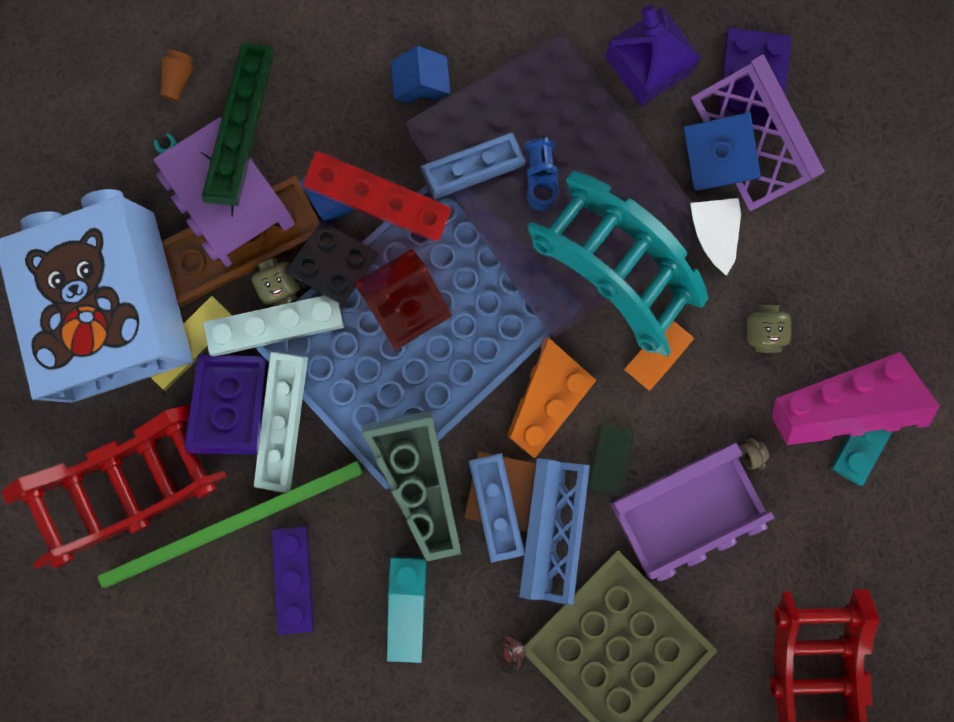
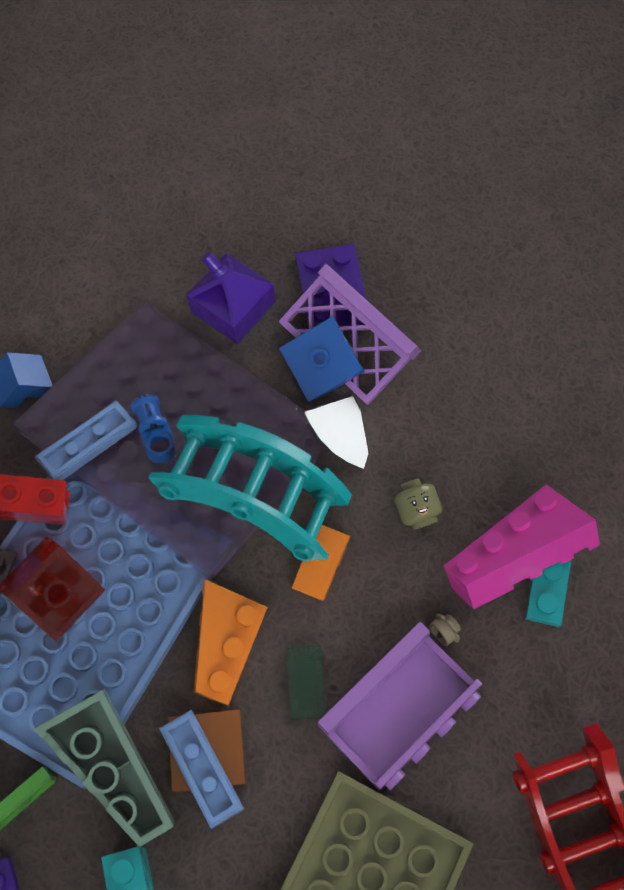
camera: 10 degrees left, 15 degrees down
(547, 530) = (260, 775): medium blue fence -> none

